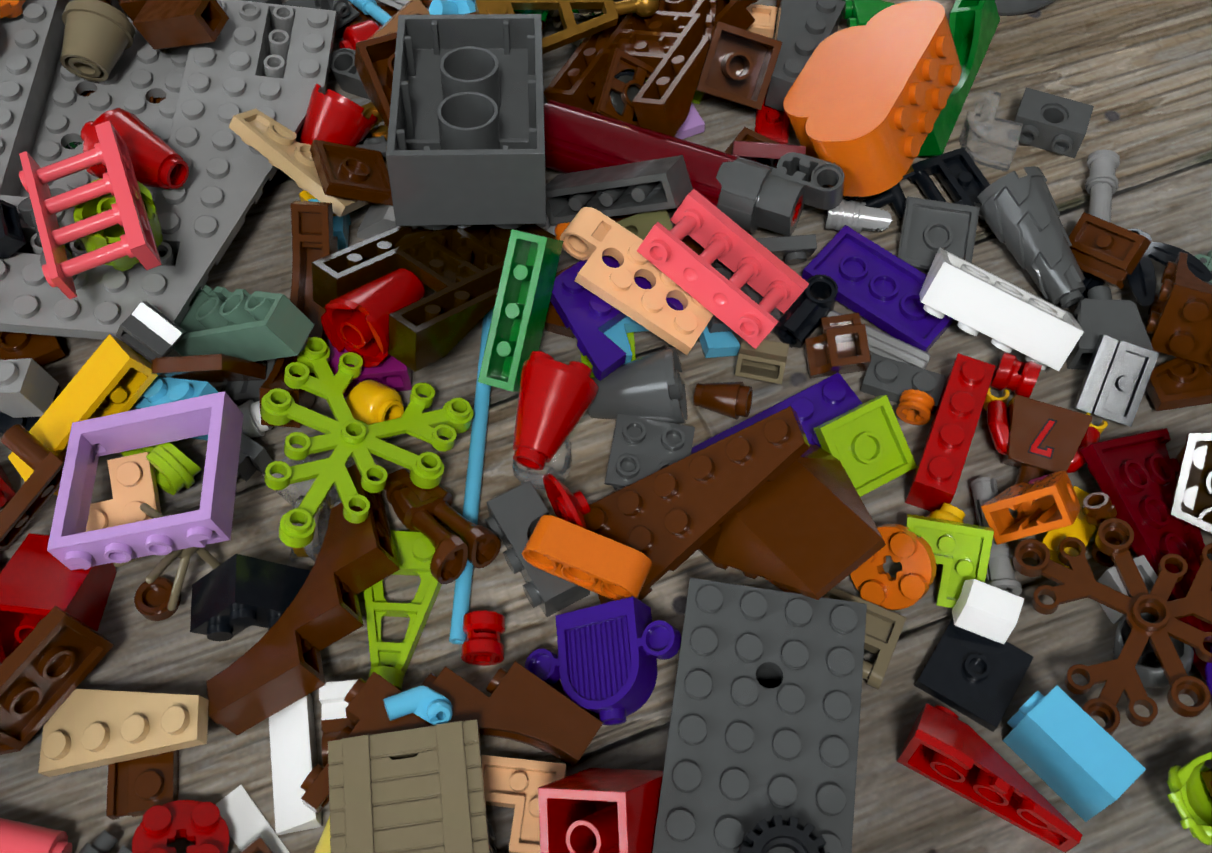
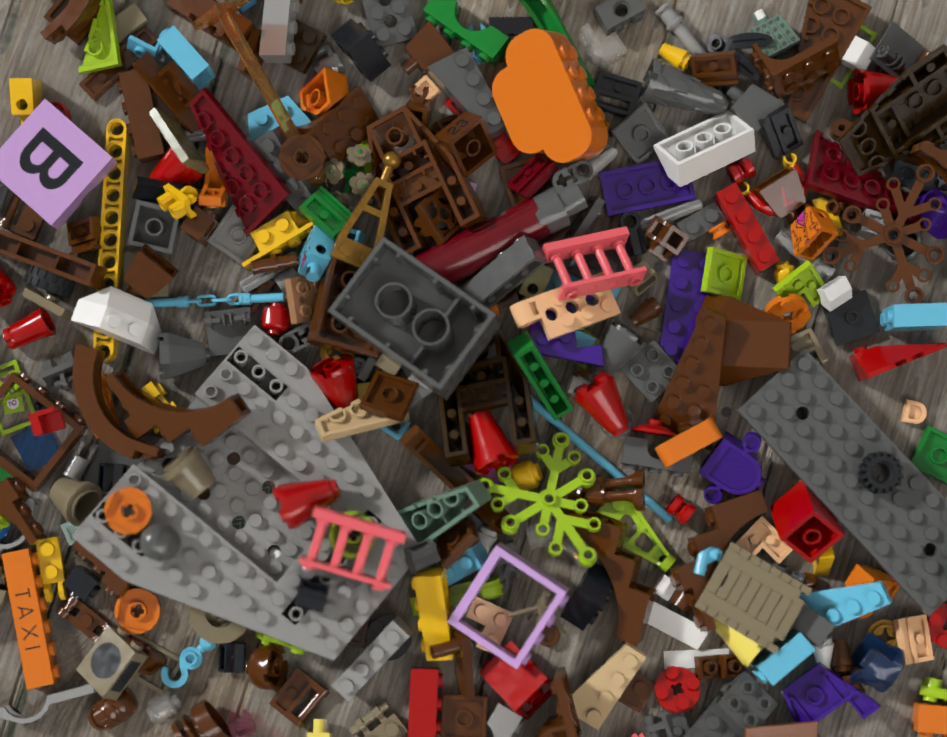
camera: 50 degrees left, 25 degrees up
(1069, 208) = (675, 56): none -> yellow cone

